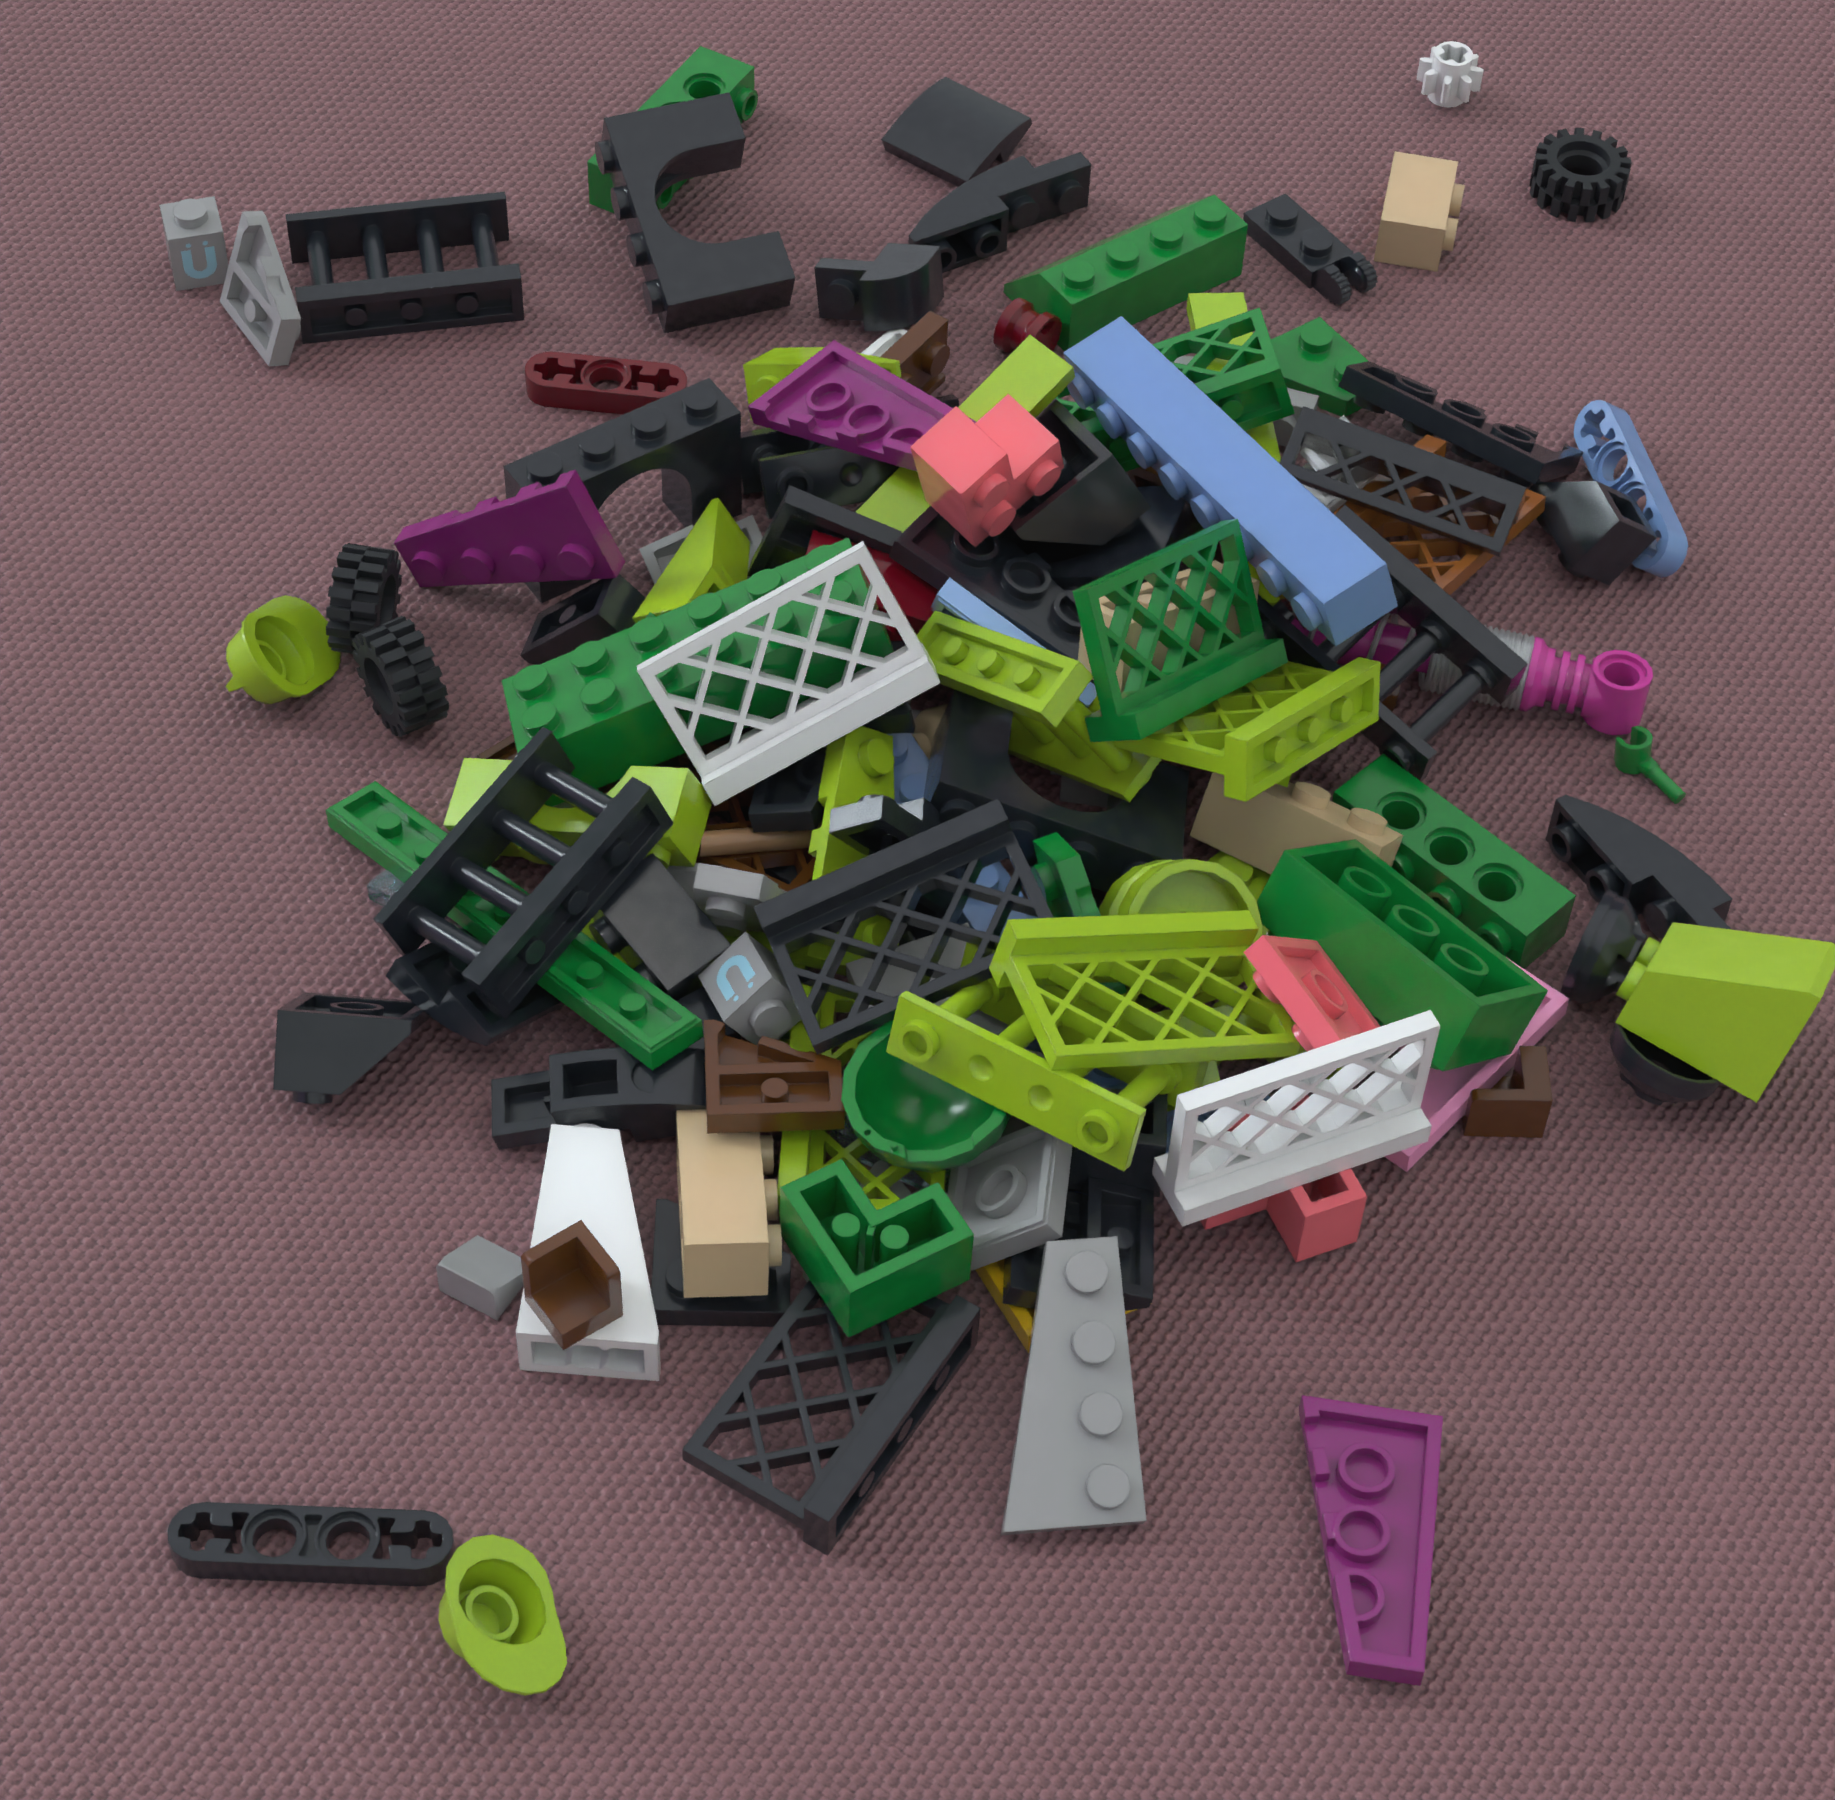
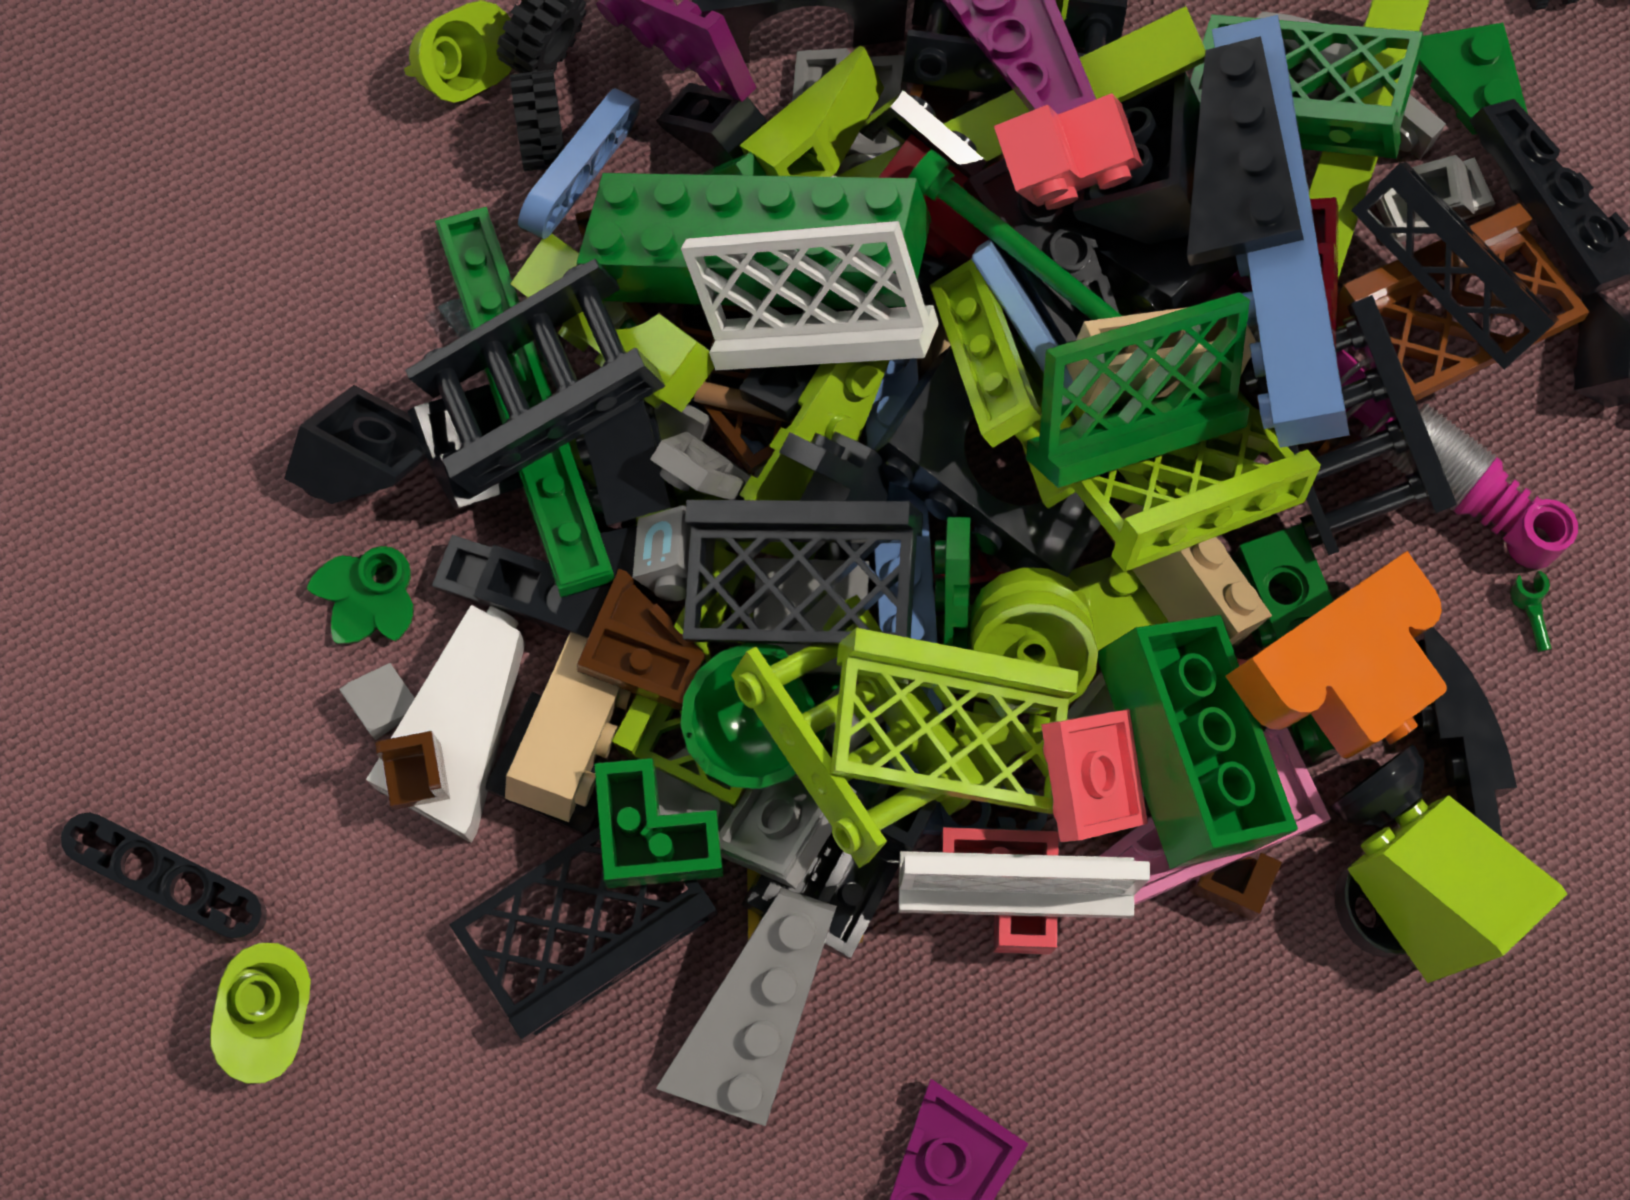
camera: 25 degrees right, 25 degrees up
(417, 1186) = (360, 601): none -> green plate
(465, 695) = (578, 163): none -> medium blue beam
(969, 577) = (937, 182): none -> green piece
(1160, 426) = (1241, 167): none -> black wing
(1508, 836) = (1352, 663): none -> orange brick

